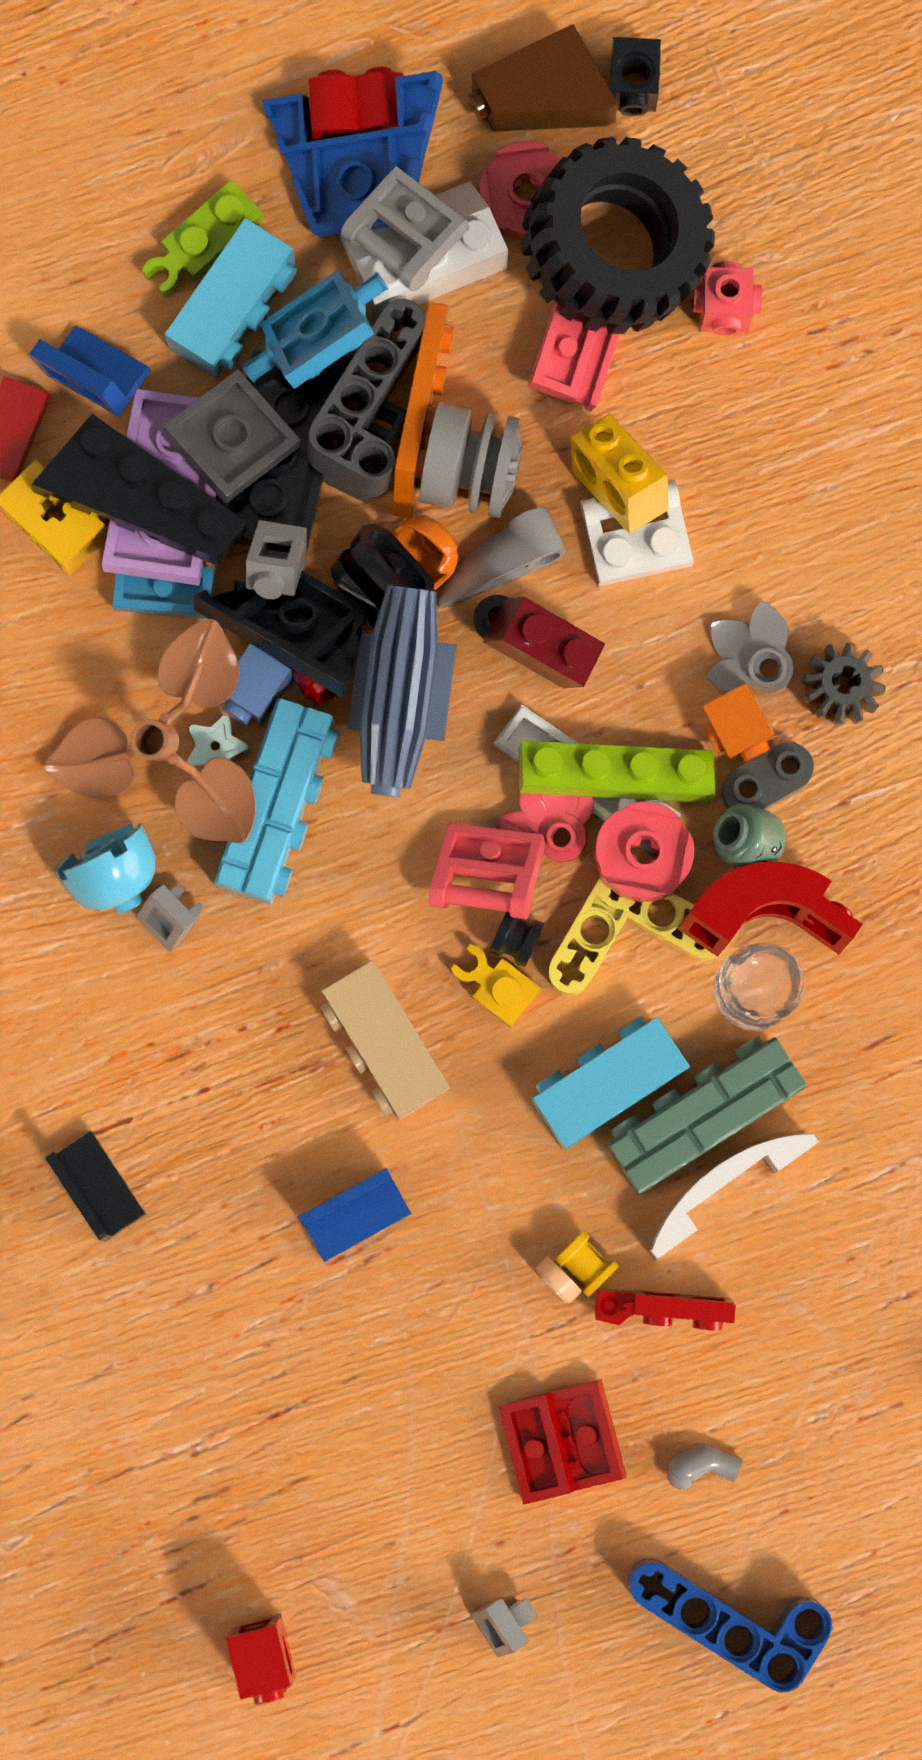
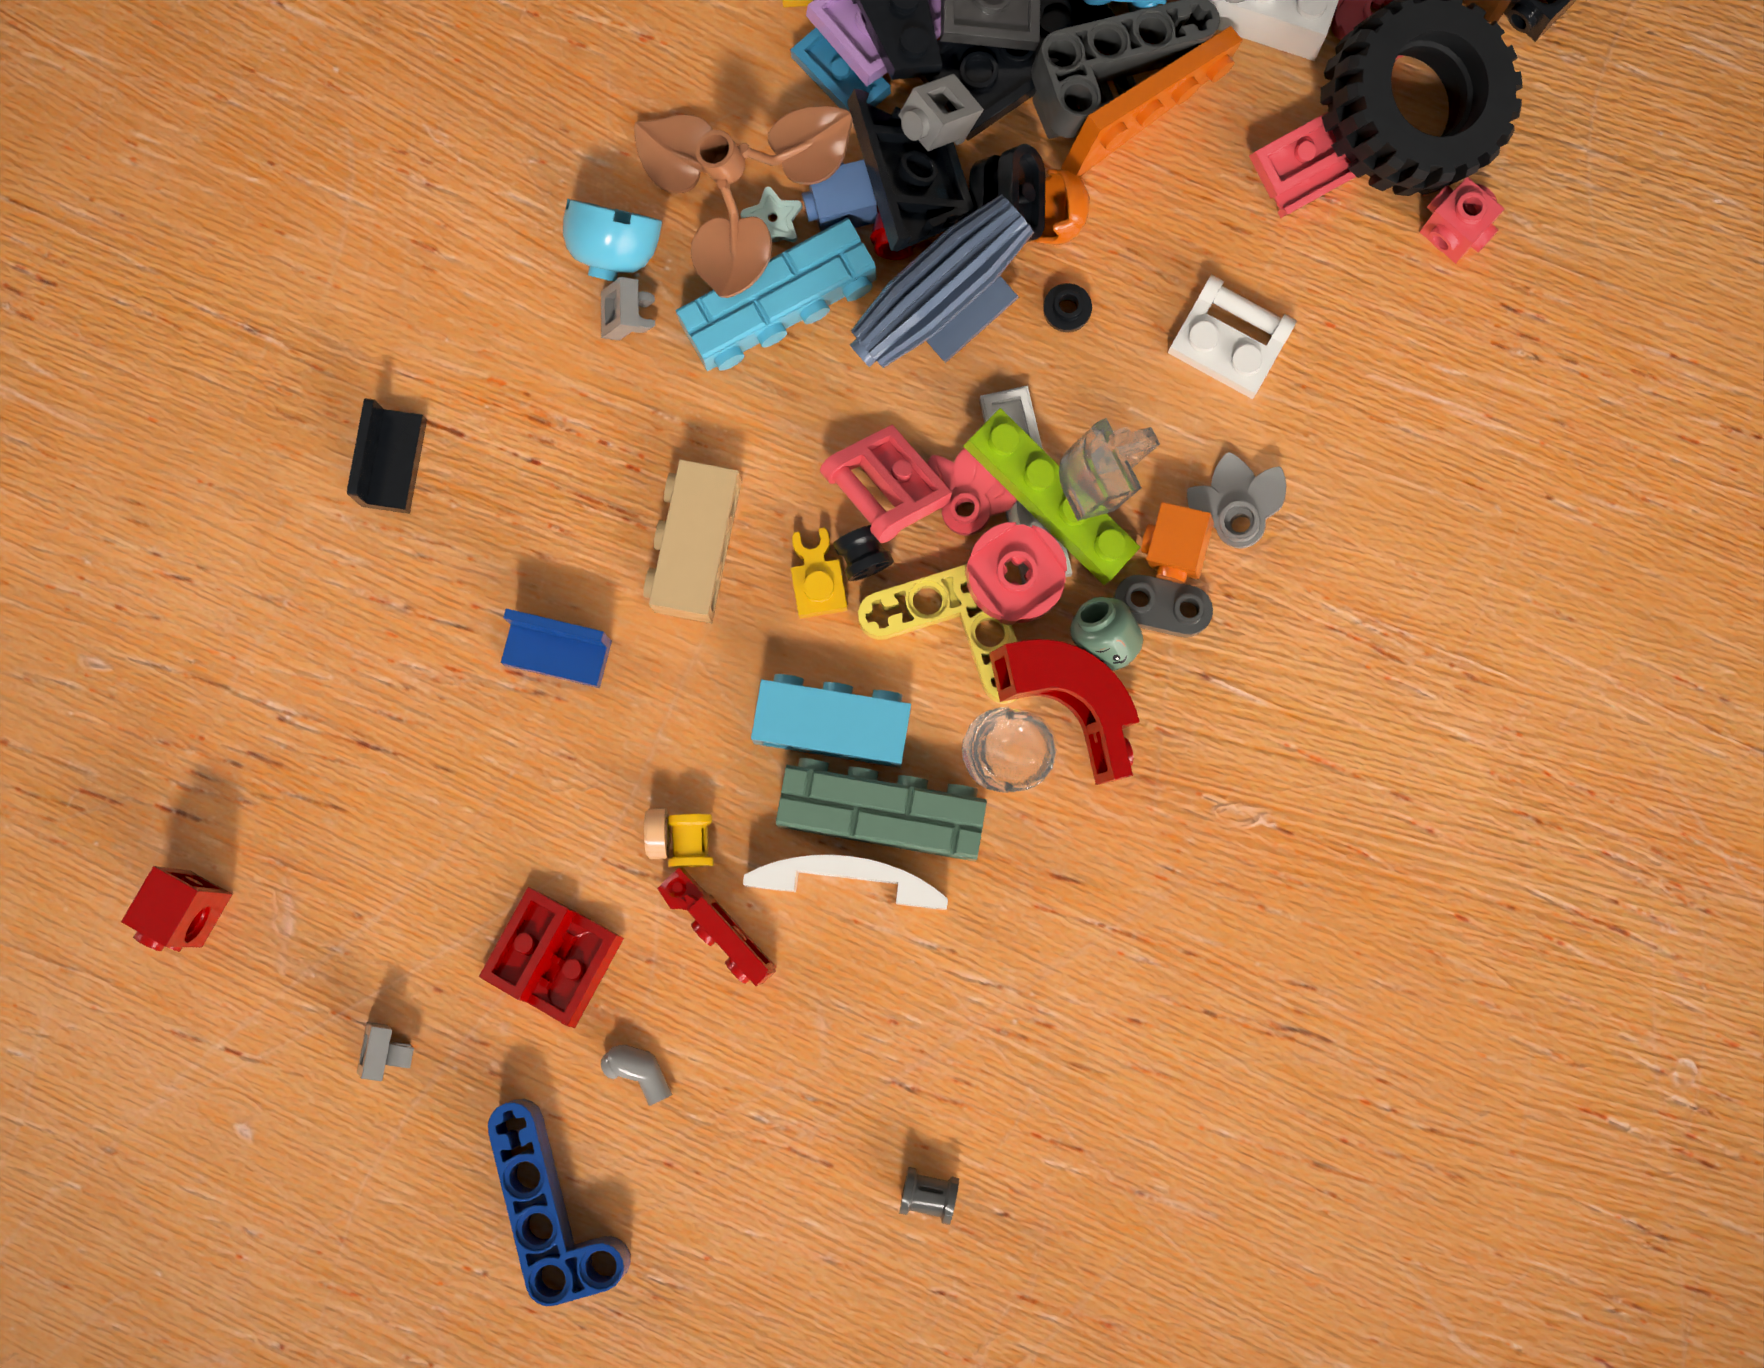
camera: 45 degrees right, 0 degrees up
(470, 460) = (1152, 165): light grey wheel -> none
(513, 552) = (1124, 270): light grey piece -> none
(544, 642) = (1084, 350): dark red brick -> none
(619, 473) = (1259, 275): yellow brick -> none
(635, 723) = (1099, 465): none -> clear brick
(859, 695) = (1277, 568): dark grey gear -> none

